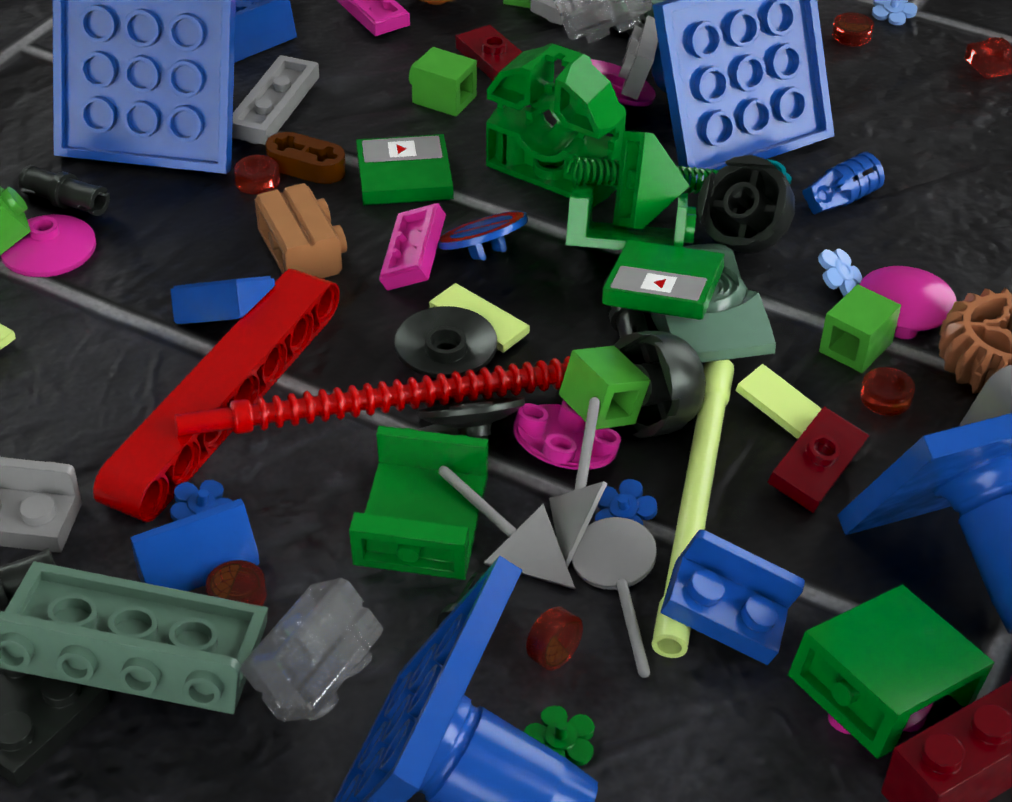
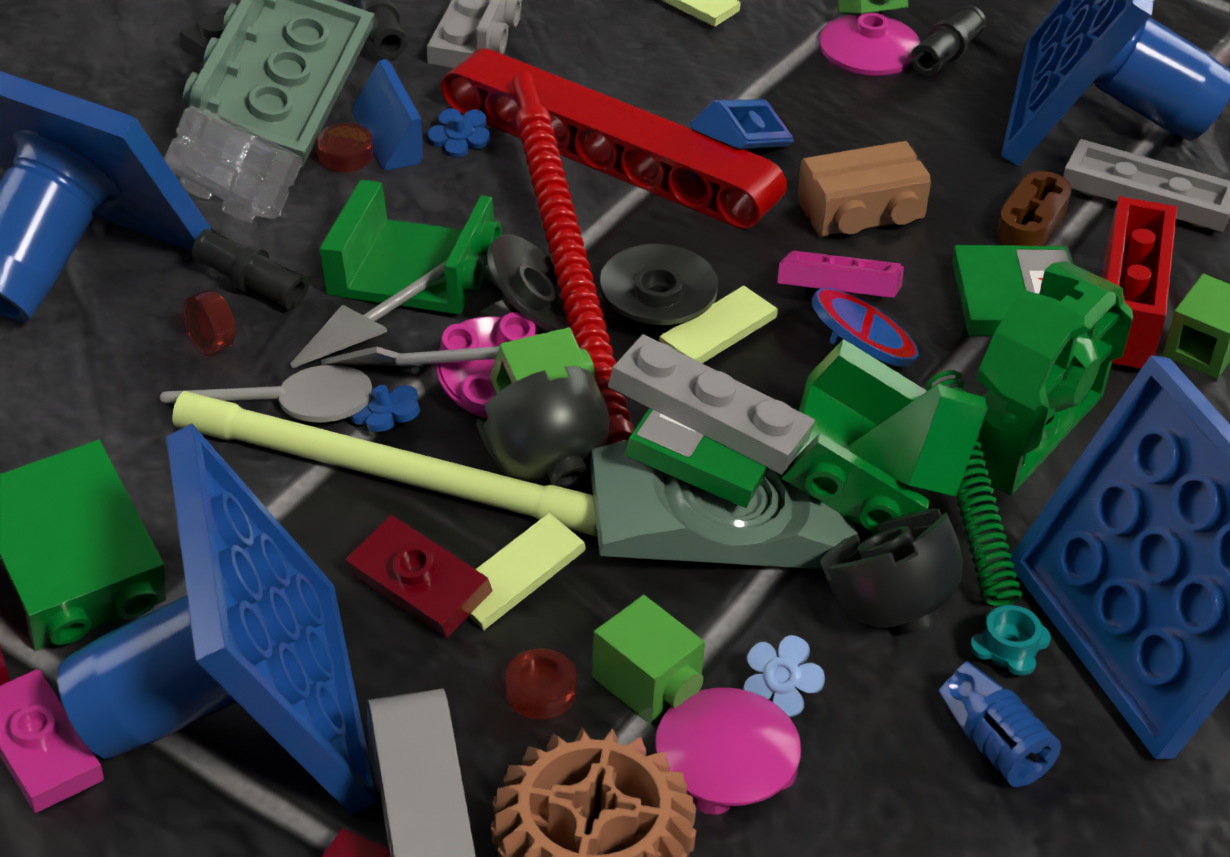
camera: 95 degrees right, 0 degrees up
(257, 174) = (998, 175): clear red tile -> none
(415, 100) = (1140, 262): none -> red brick
(564, 737) = (105, 328): green plant -> none
(650, 265) = (711, 403): none -> light grey plate
(731, 596) = (226, 417): blue bracket -> none

